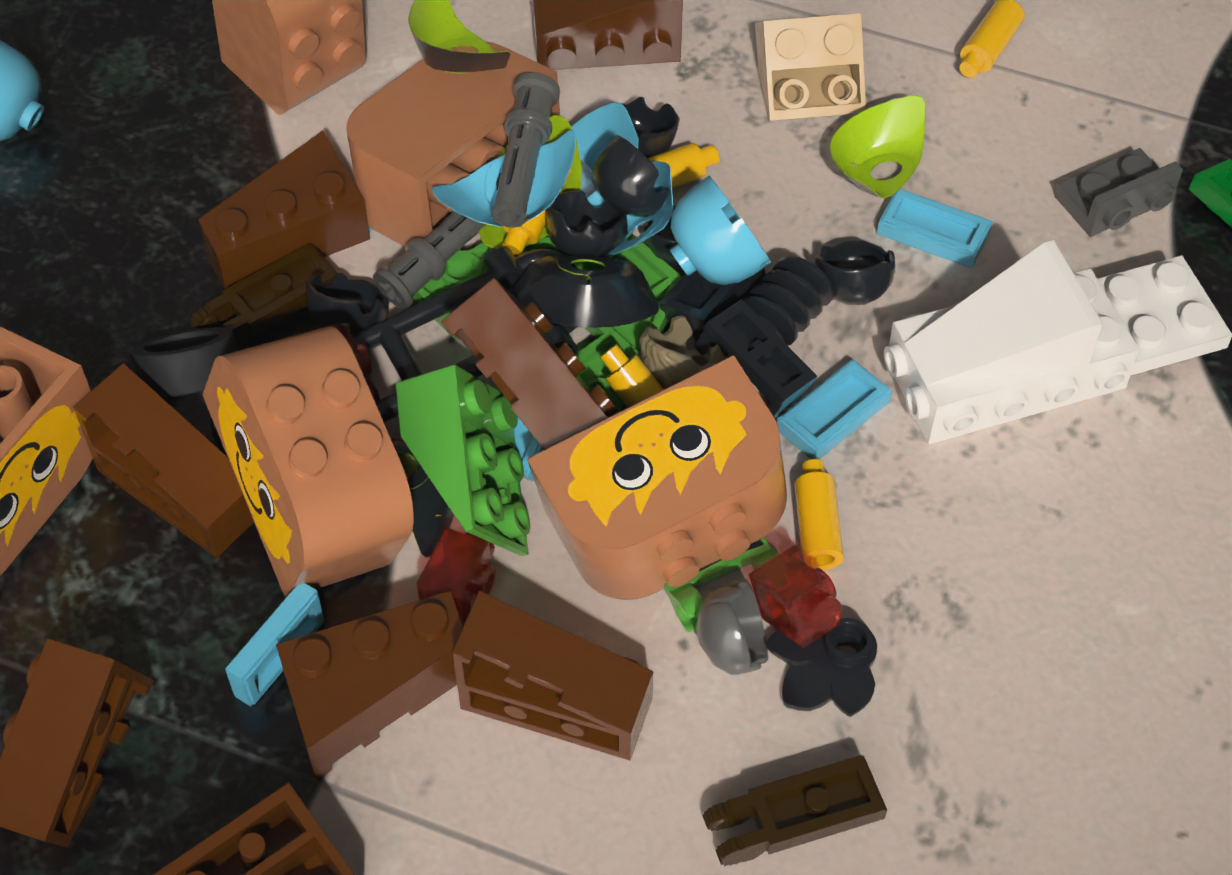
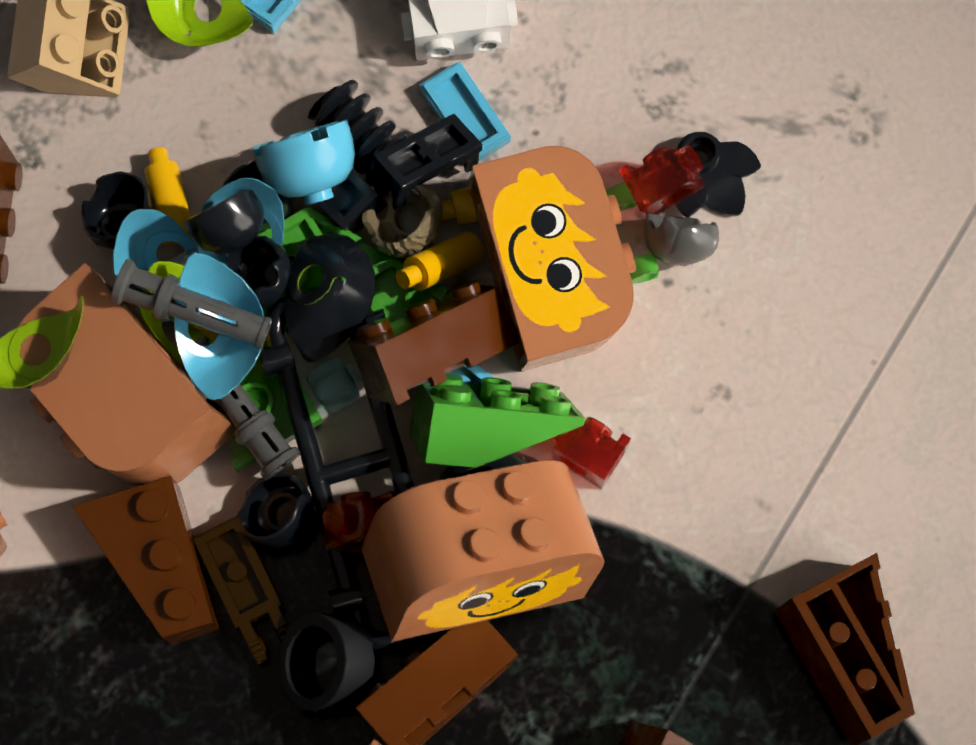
camera: 80 degrees left, 20 degrees up
(259, 660) = (631, 610): medium azure tile -> none
(369, 674) = (675, 532): reddish brown wedge -> none
(549, 679) = (705, 384): reddish brown wedge -> none
(798, 810) = (836, 220): dark brown hinge -> none
(818, 516) = (597, 148): yellow cylinder -> none
(857, 270) = (329, 56): black hair -> none

